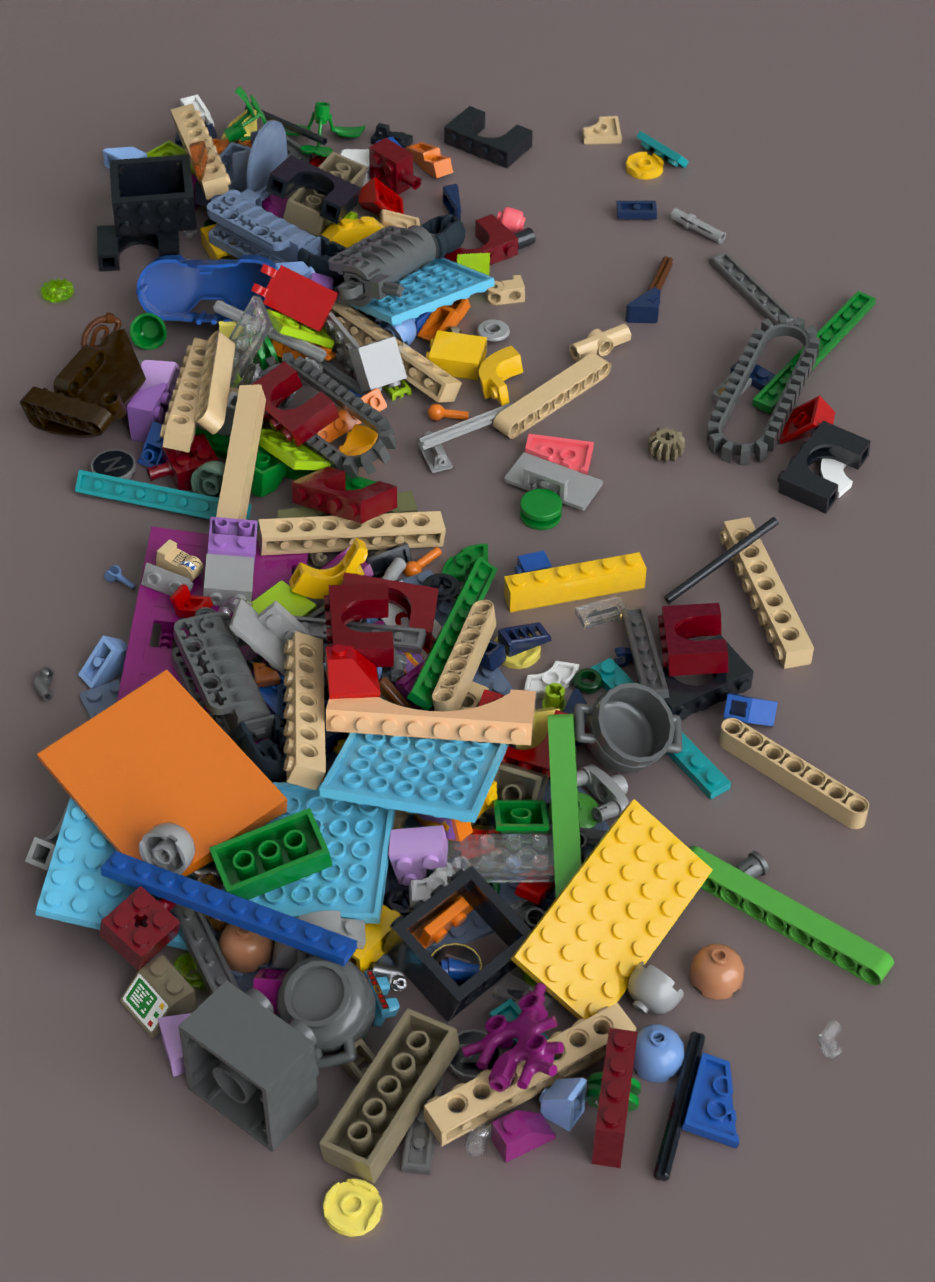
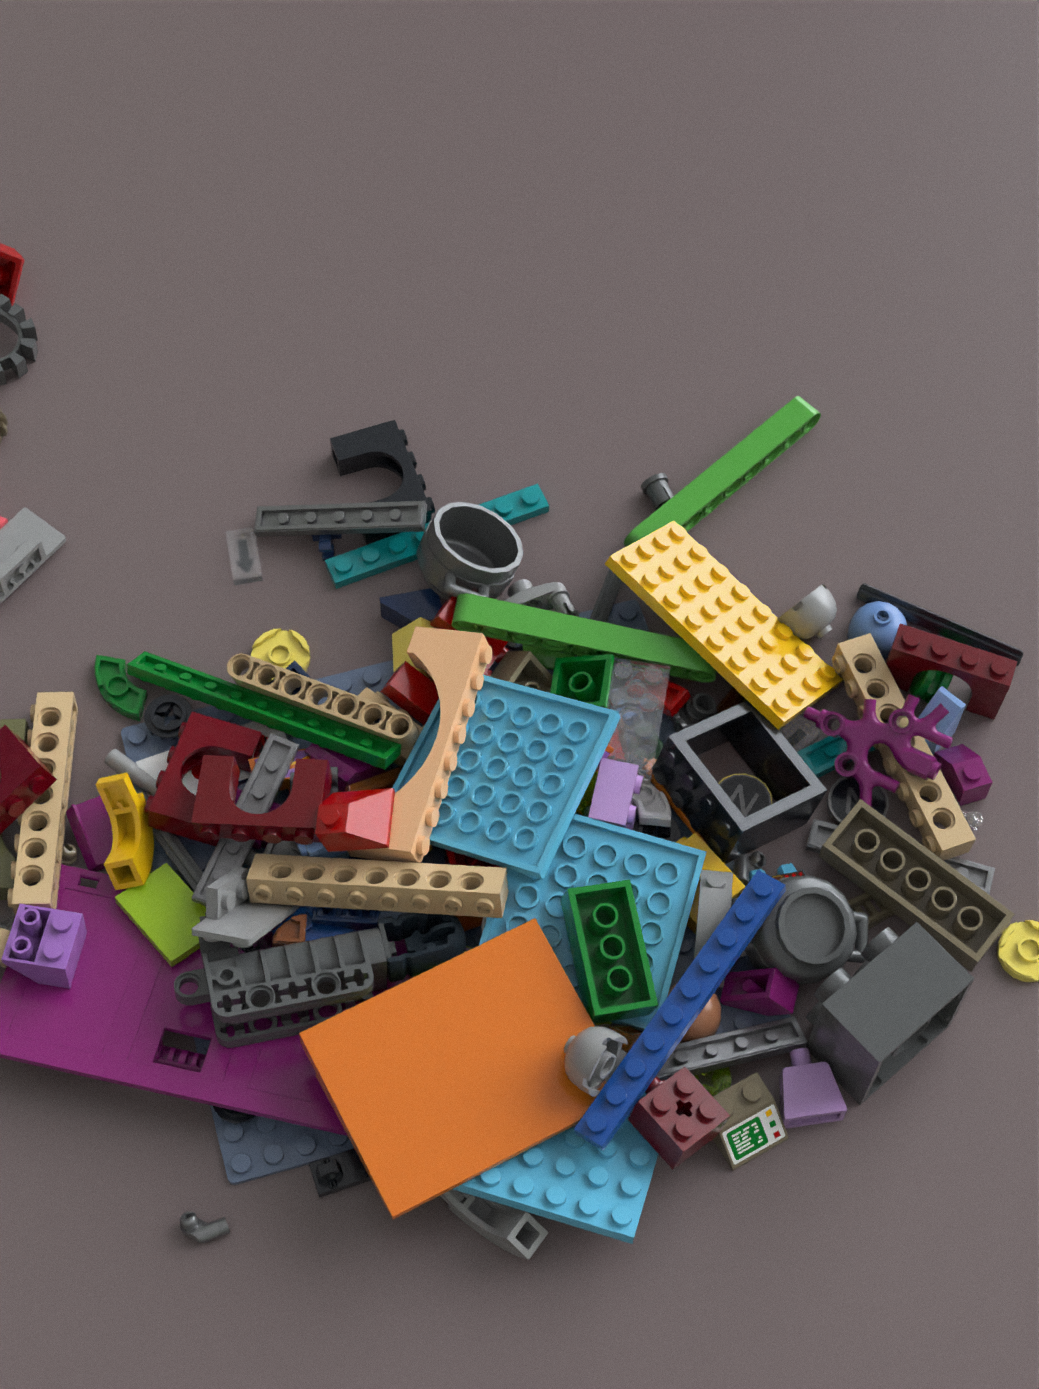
camera: 80 degrees left, 15 degrees up
(104, 662) = (191, 1140): light blue slope -> none
(115, 573) = (23, 1114): medium blue hand -> none
(163, 580) = (100, 1029): light grey hinge -> none
(178, 562) = (64, 1015): tan leg -> none
(187, 604) = (146, 1008): red bracket -> none
(228, 577) = (109, 959): light grey piece -> none
(229, 605) = (156, 954): clear arm -> none
(382, 559) = (92, 764): black hinge -> none
(415, 567) = (108, 742): orange bar -> none
(458, 970) = (760, 793): blue cone -> none
(515, 644) = (280, 659): dark blue slope -> none
(532, 562) = (160, 610): blue brick -> none
(540, 509) = (54, 584): green head -> none
(554, 696) = (373, 627): lime bush -> none
(560, 673) = (342, 629): white tile -> none
(574, 582) = (196, 571): yellow brick -> none
(587, 688) = (352, 601): dark green piece -> none
(692, 656) = (363, 480): dark red arch -> none
(711, 1102) = (943, 596): blue wing -> none
(717, 971) = (785, 554): nougat cylinder -> none
(721, 560) = (211, 410): black piece -> none
(750, 709) = (441, 443): blue slope -> none
(768, 596) = (262, 381): tan brick -> none
(794, 773) = (596, 386): tan beam -> none
(824, 443) = (91, 305): black arch -> none
(826, 1040) = (880, 480): clear arm -> none
(833, 471) = (85, 272): white tile -> none

